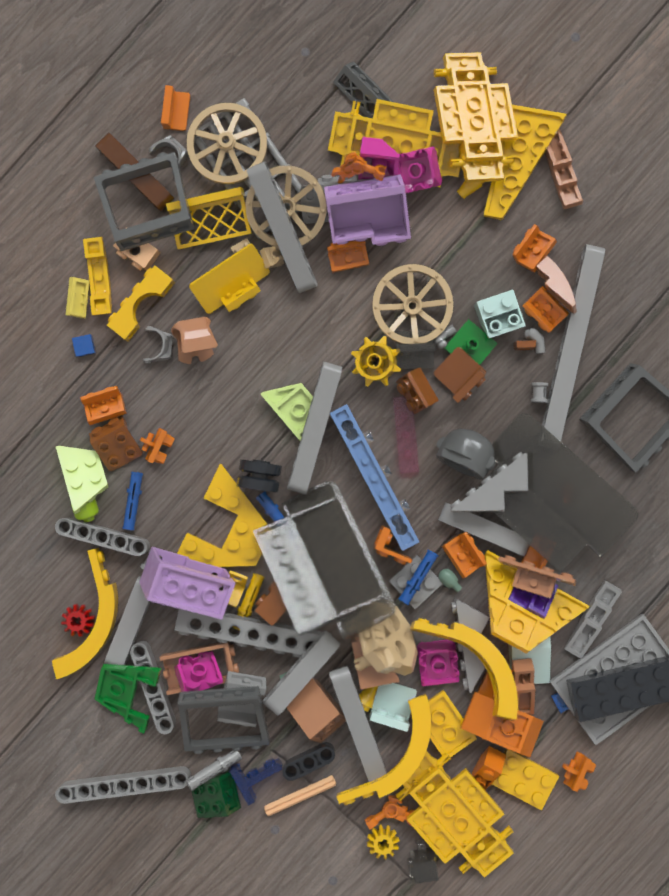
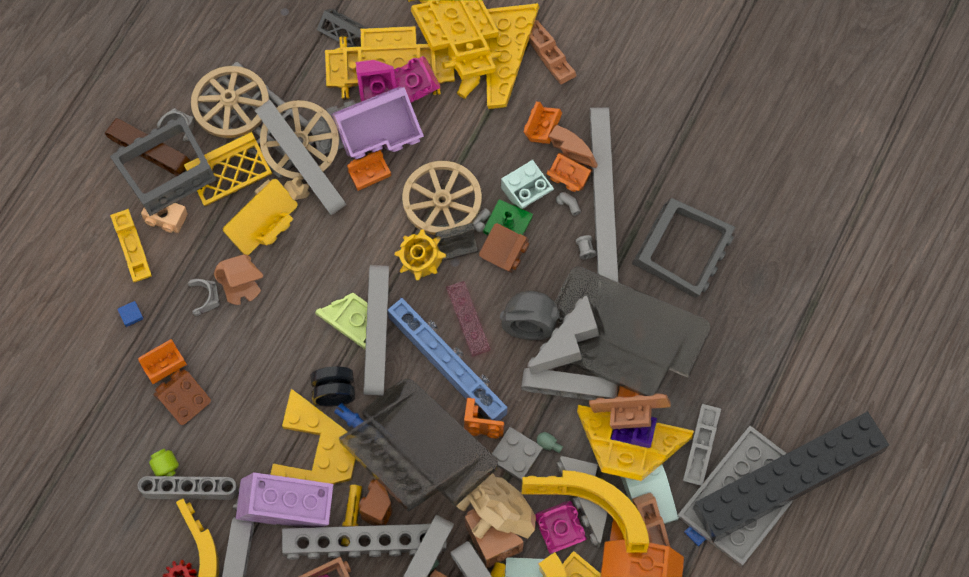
camera: 15 degrees left, 20 degrees down
(77, 297) = (115, 270): light yellow plate -> none
(82, 475) = (154, 431): yellowish green wing -> none
(129, 523) = (210, 424): blue pin -> none
(154, 284) = (189, 240): yellow arch -> none
(160, 438) = (227, 379): orange hips -> none
(175, 109) = (174, 86): orange panel -> none
(238, 588) = (337, 505): yellow bracket -> none
(357, 165) = (356, 86): orange piece -> none
(416, 391) = (466, 272): dark orange slope -> none
(418, 577) = (509, 464): blue pin -> none
(464, 554) = (556, 413): orange bracket -> none
(525, 345) = (558, 208): dark orange tile -> none

